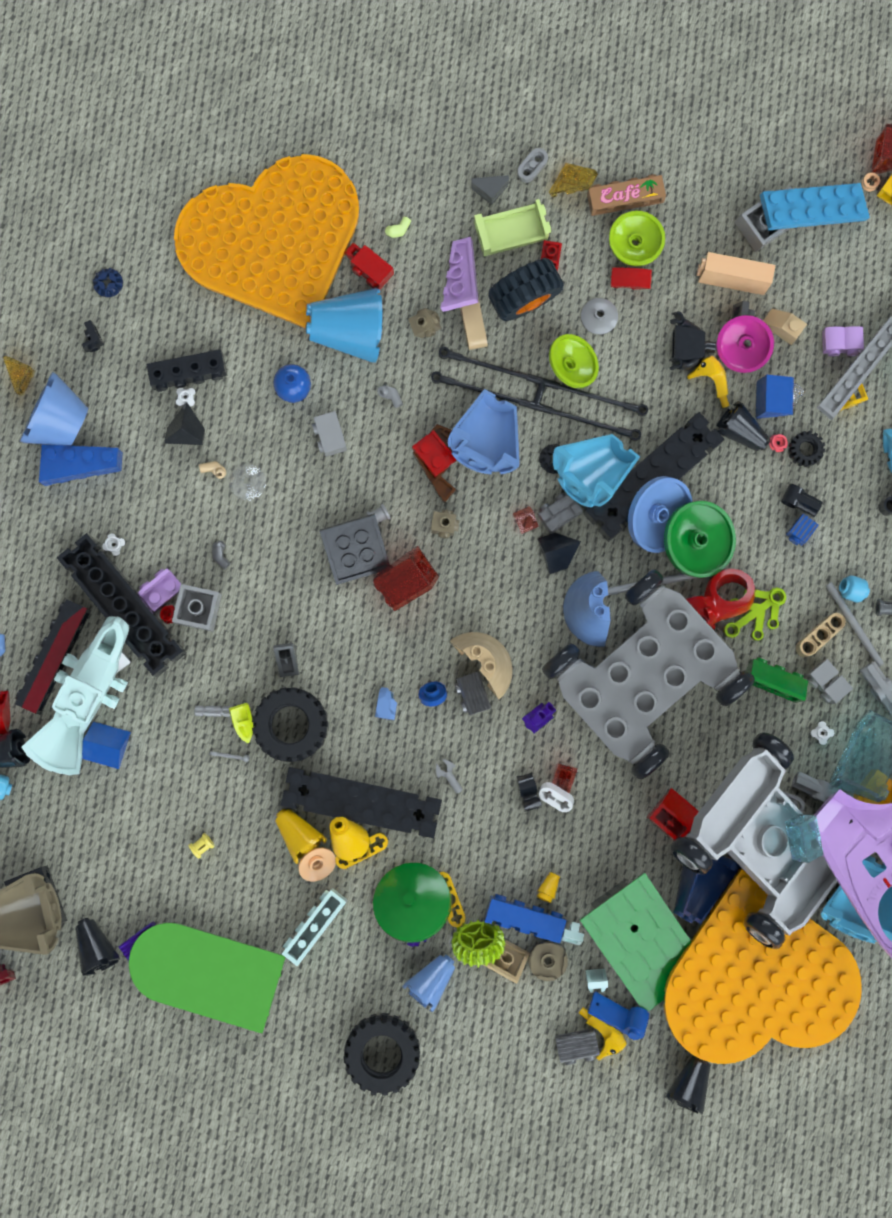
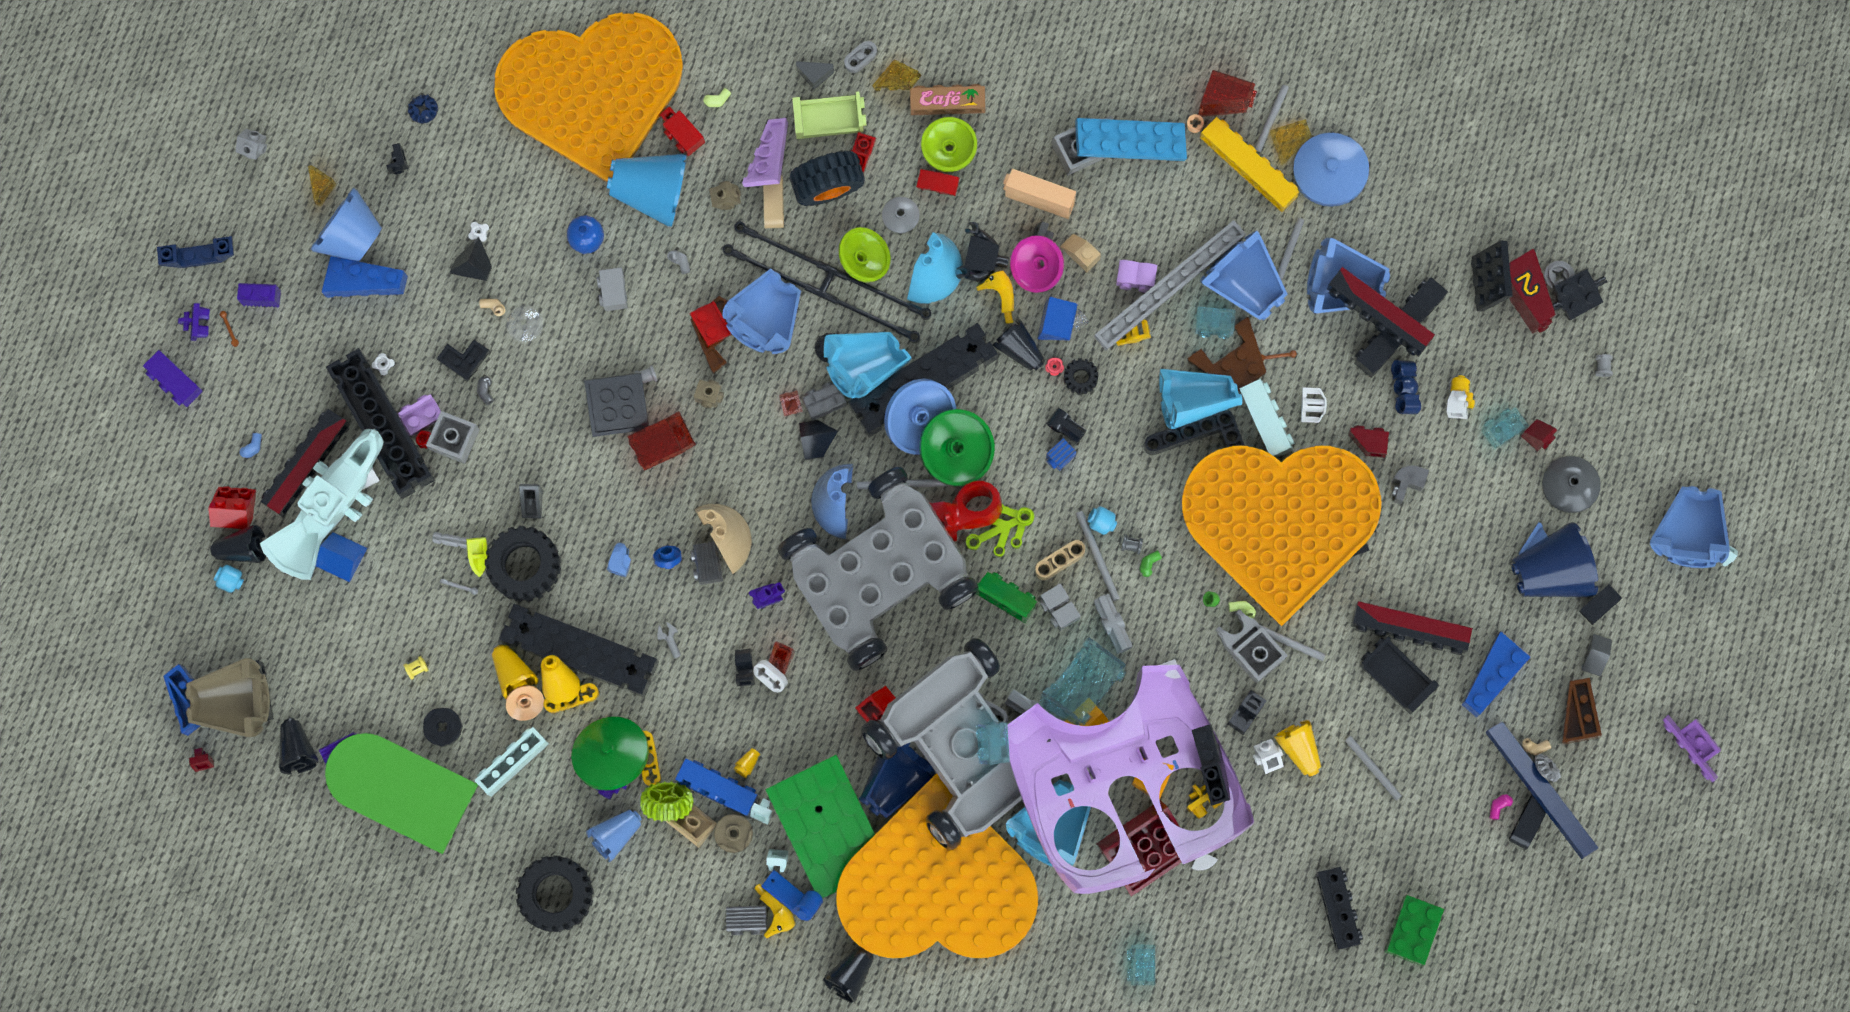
camera: 15 degrees right, 5 degrees down
(186, 370) = (484, 206): black brick -> none
(195, 531) = (465, 363): none -> black plate
(239, 912) = (443, 738): none -> black plate
(650, 368) = (935, 271): none -> medium azure cone
(817, 733) = (1045, 661): white plate -> none

